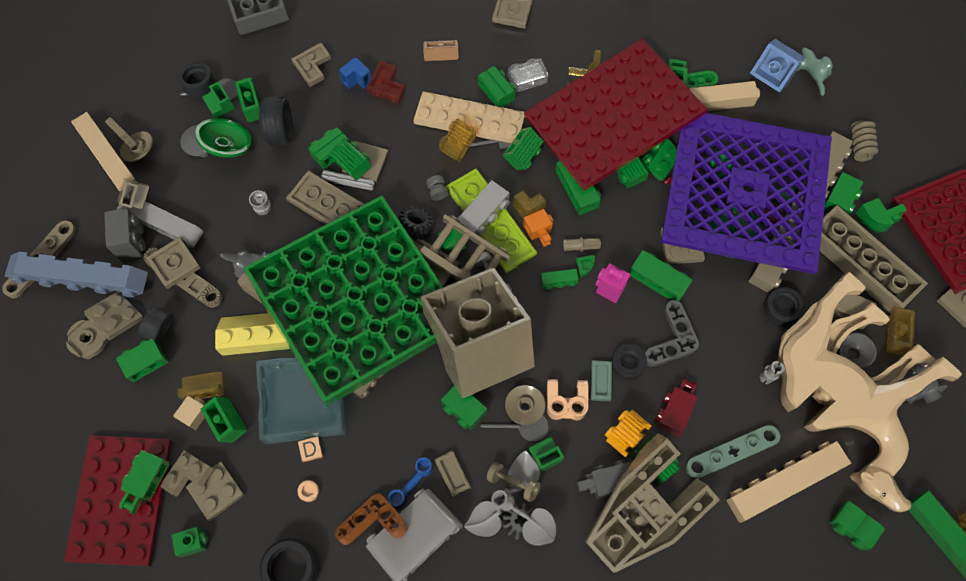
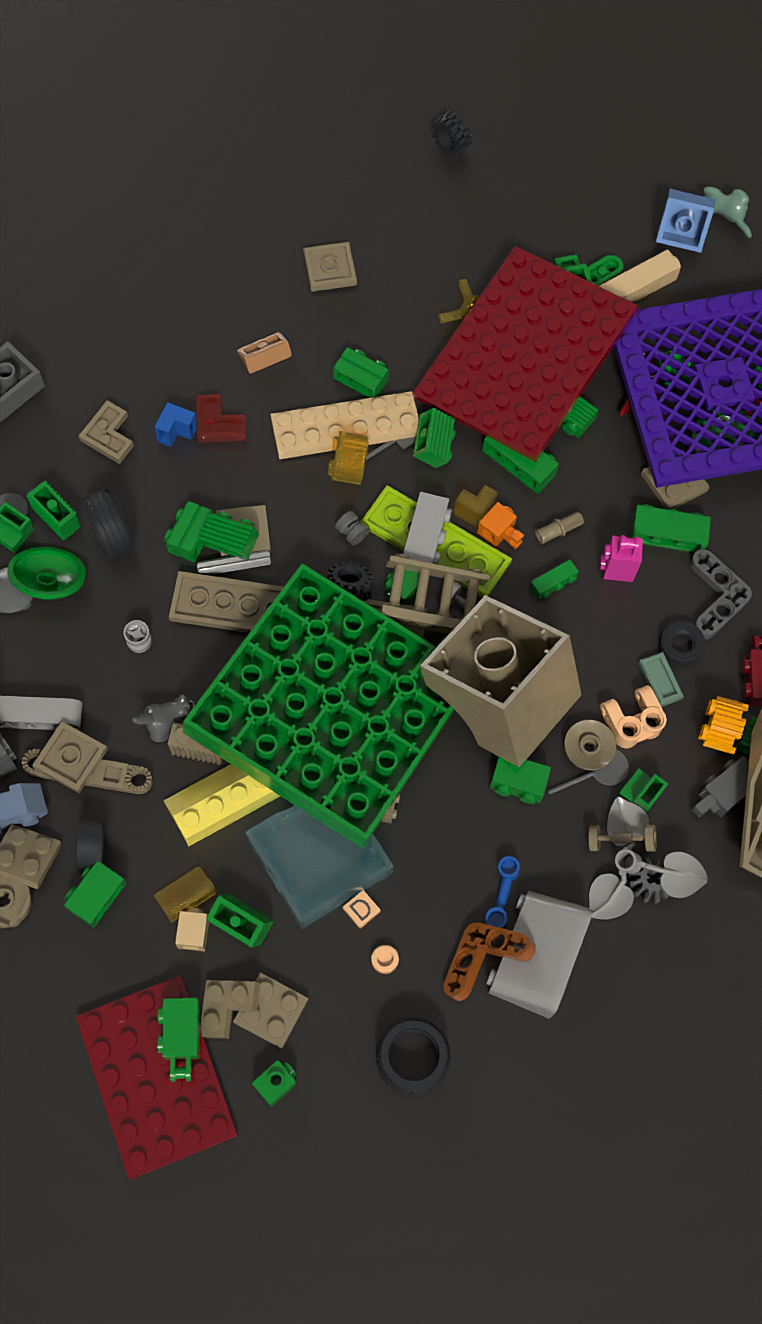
camera: 30 degrees left, 0 degrees up
(452, 473) = (544, 862): dark tan tile -> none
(528, 74) = (392, 342): clear brick -> none
(585, 264) = (575, 550): green tile -> none
(660, 159) = (604, 388): green bracket -> none

